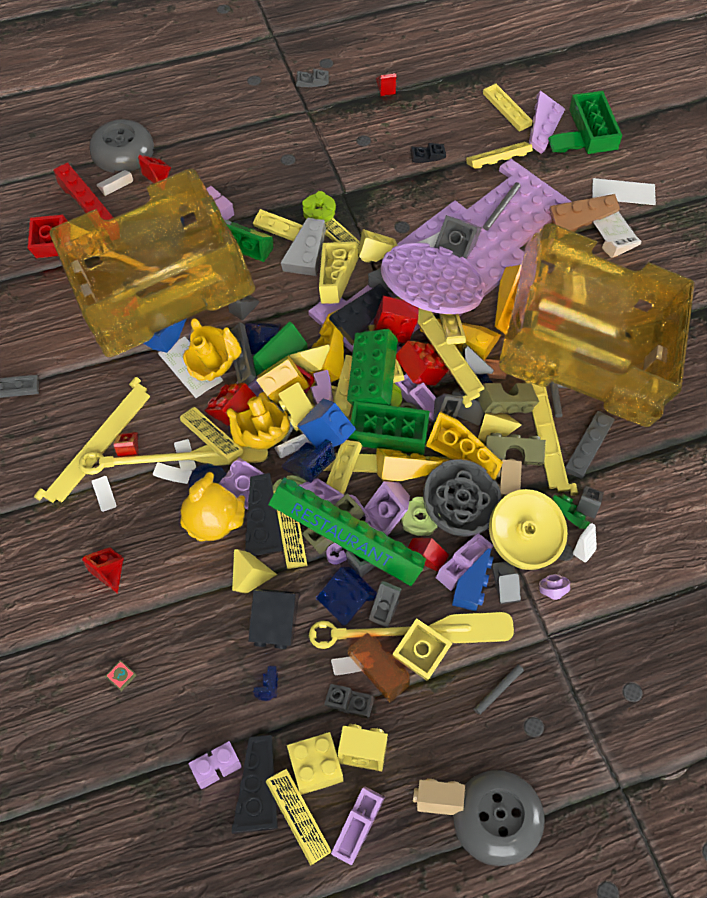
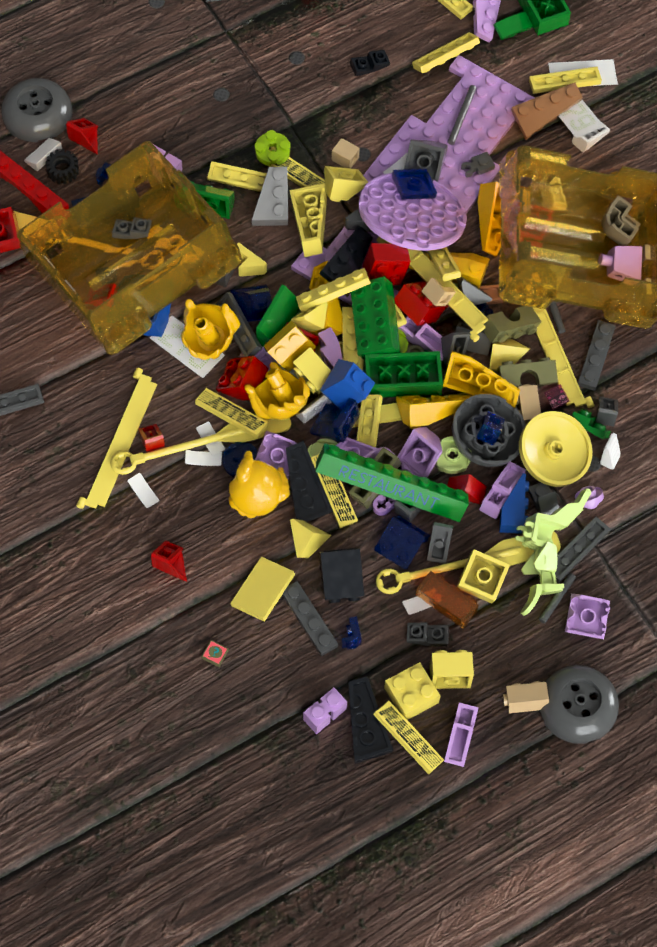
camera: 15 degrees left, 5 degrees up
(127, 187) = (64, 175): none -> black tyre
(165, 251) = (131, 230): none -> dark grey slope
(189, 616) = (262, 589): none -> light yellow tile
(229, 658) = (309, 618): none -> dark grey plate
(269, 302) = (251, 263): none -> light yellow slope
(333, 335) = (333, 289): none -> light yellow plate
(385, 222) = (345, 154): none -> tan panel
(439, 355) = (437, 293): none -> tan panel
(441, 255) = (414, 184): none -> clear blue tile
(463, 495) = (491, 428): none -> clear blue bracket
(489, 618) = (538, 537): none -> yellowish green piece
(509, 250) = (481, 164): none -> dark grey plate
(528, 716) = (587, 616): none -> lavender slope
(530, 640) = (580, 547): none -> dark grey plate
(540, 478) = (556, 397): none -> clear pink tile
(623, 192) = (554, 81): none -> light yellow plate
(632, 354) = (623, 262): none -> lavender torso
(633, 321) = (618, 224): none -> dark tan brick

